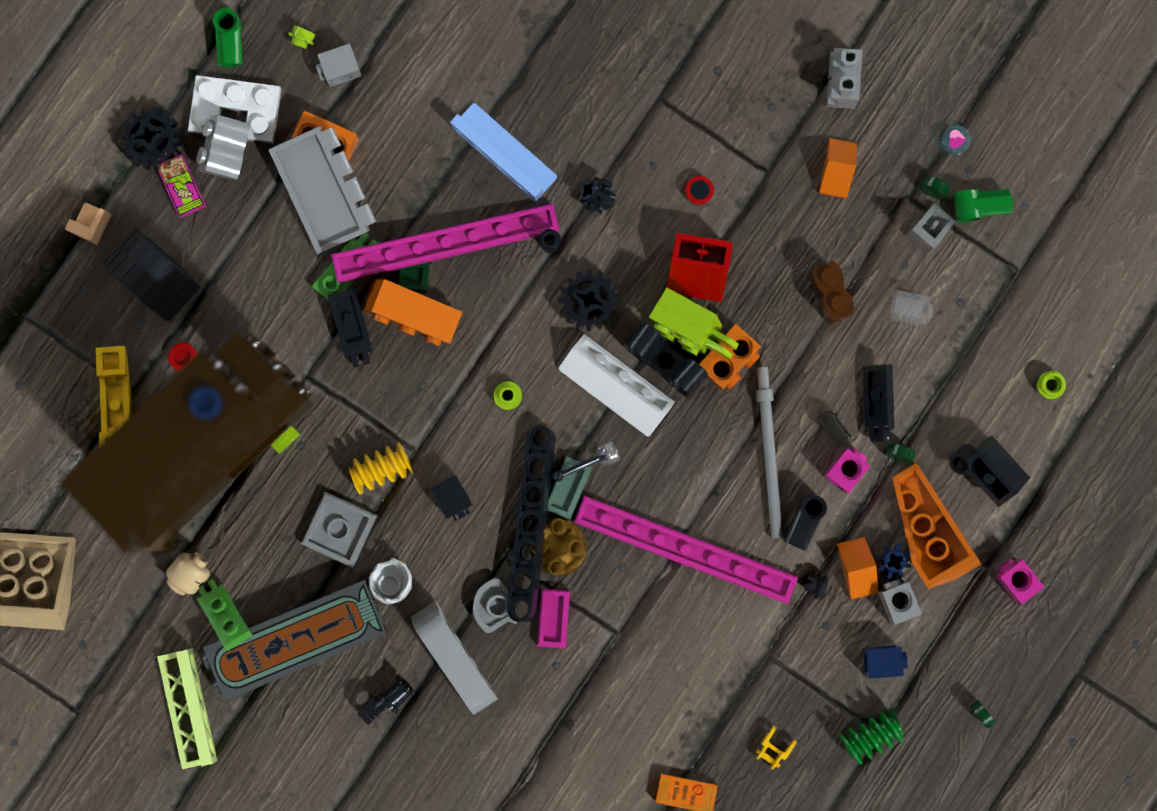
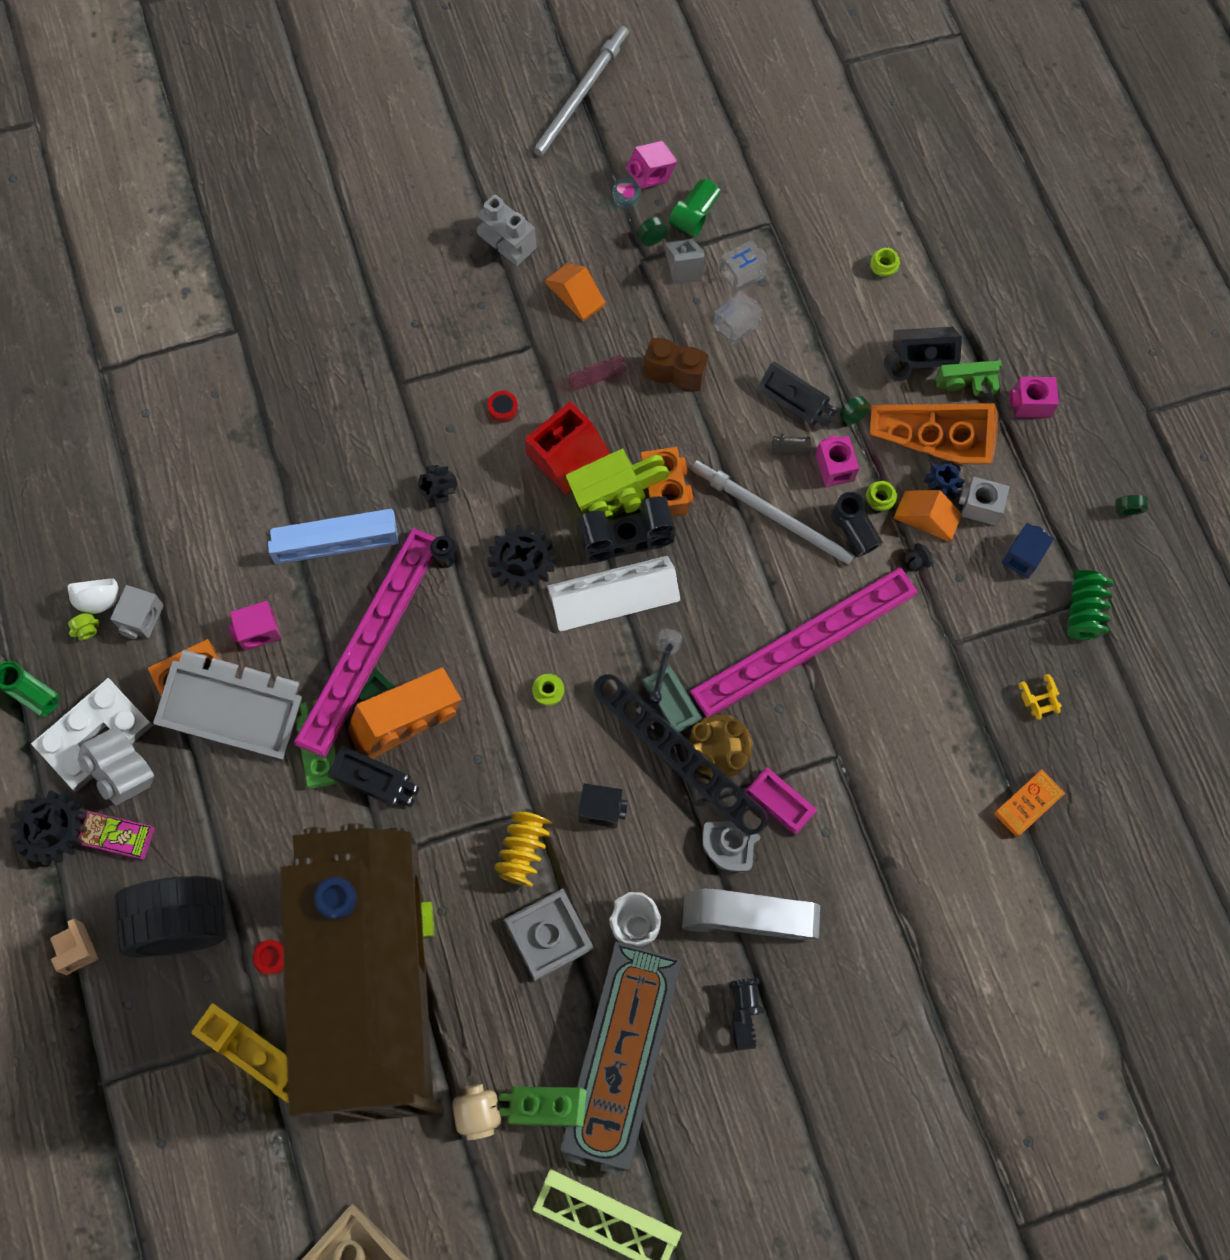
camera: 50 degrees left, 15 degrees down
(328, 24) = (94, 596): none -> white hair
(392, 154) = (254, 626): none -> dark pink brick
(782, 238) = (597, 372): none -> clear pink axle
(854, 523) = (885, 489): none -> lime plate
(960, 280) = (743, 265): none -> clear brick
(988, 510) = (958, 376): none -> bright green plate
(991, 142) = (651, 164): none -> dark pink brick
(1075, 26) = (608, 52): none -> light grey bar

